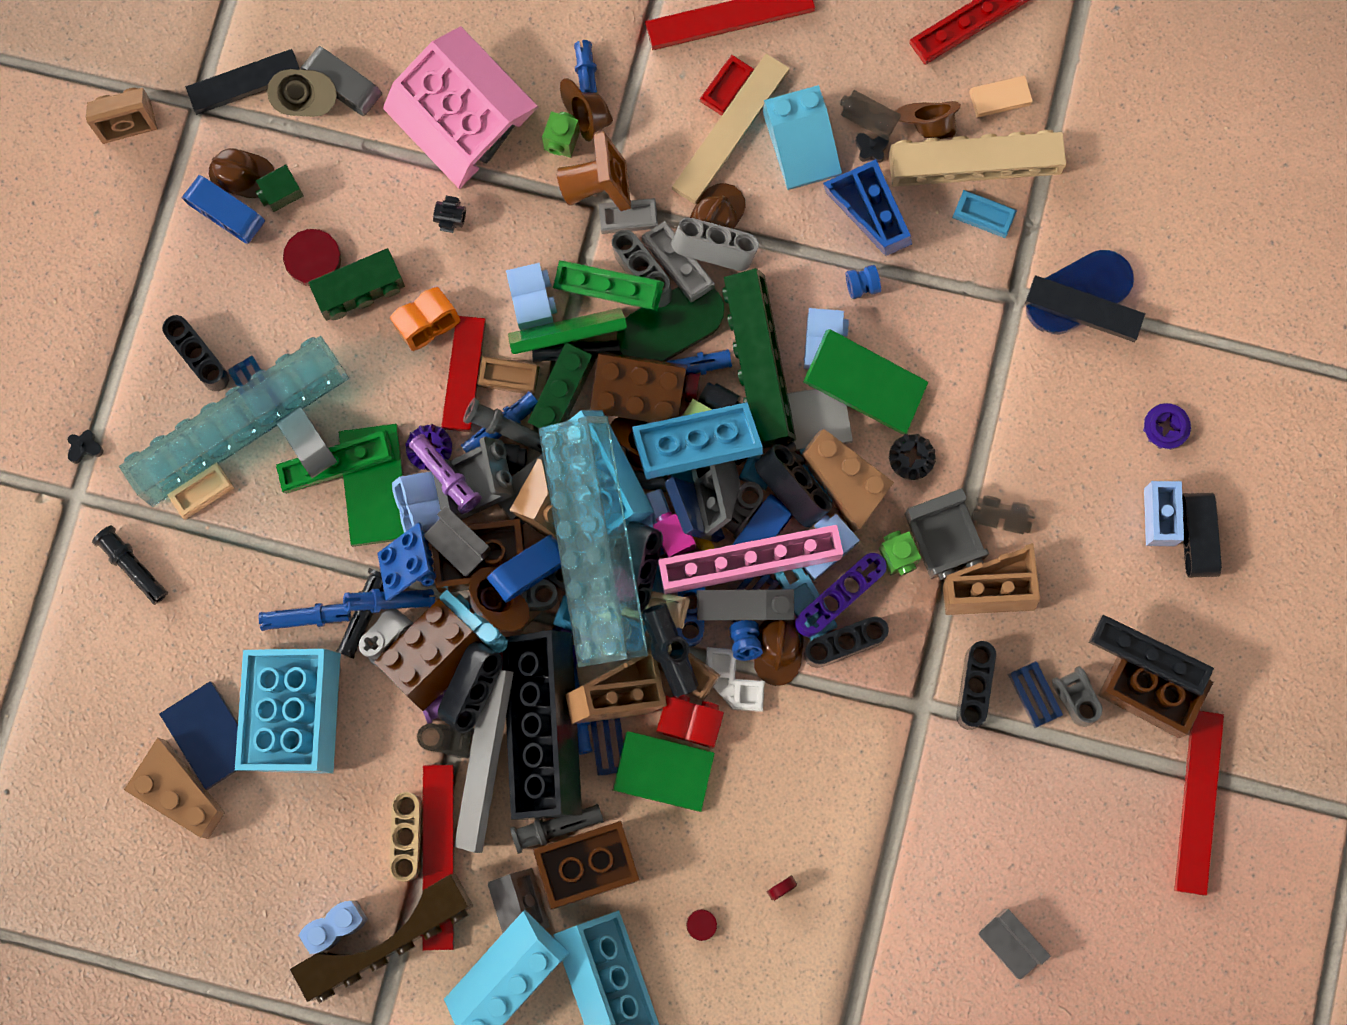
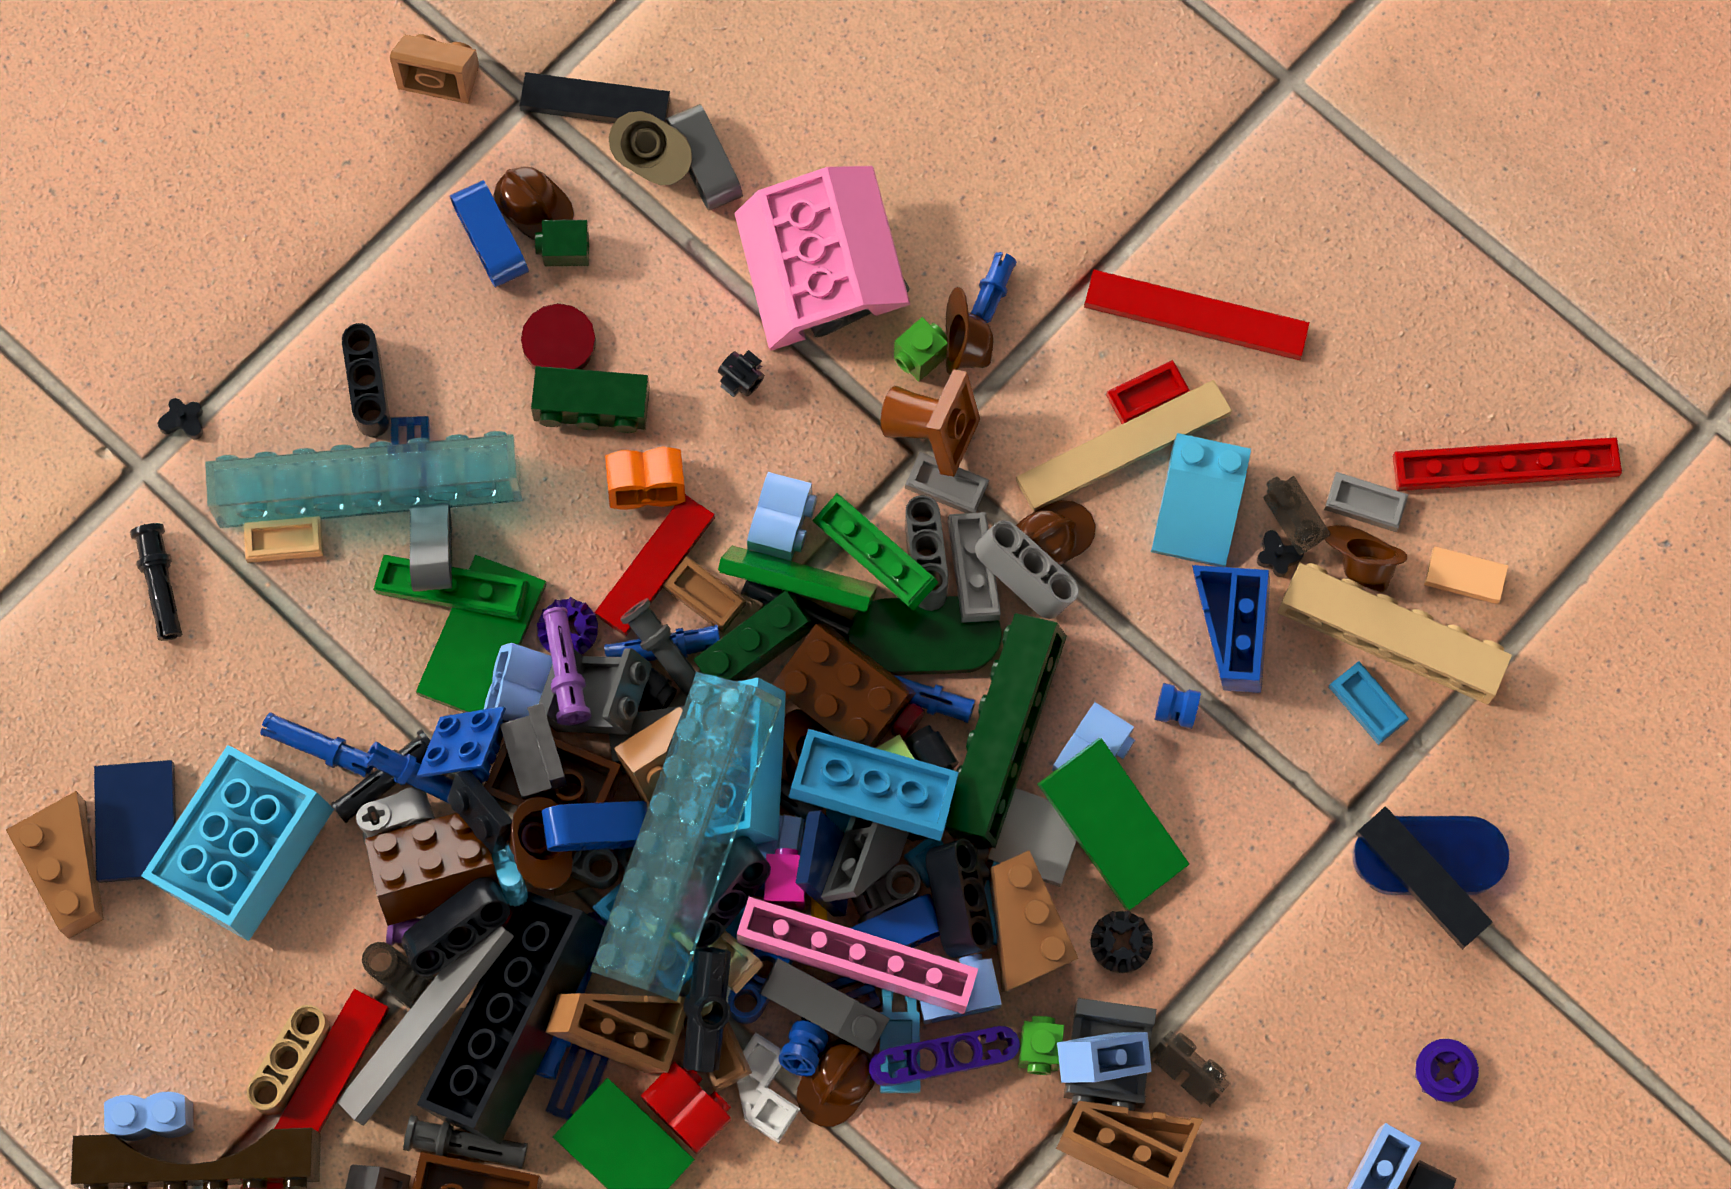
camera: 25 degrees right, 5 degrees down
(443, 601) = (480, 811): none -> black plate
(859, 635) = (938, 1107): black beam -> none
(909, 82) = (1366, 502): none -> light grey tile
(947, 538) = (1104, 1057): none -> light blue brick

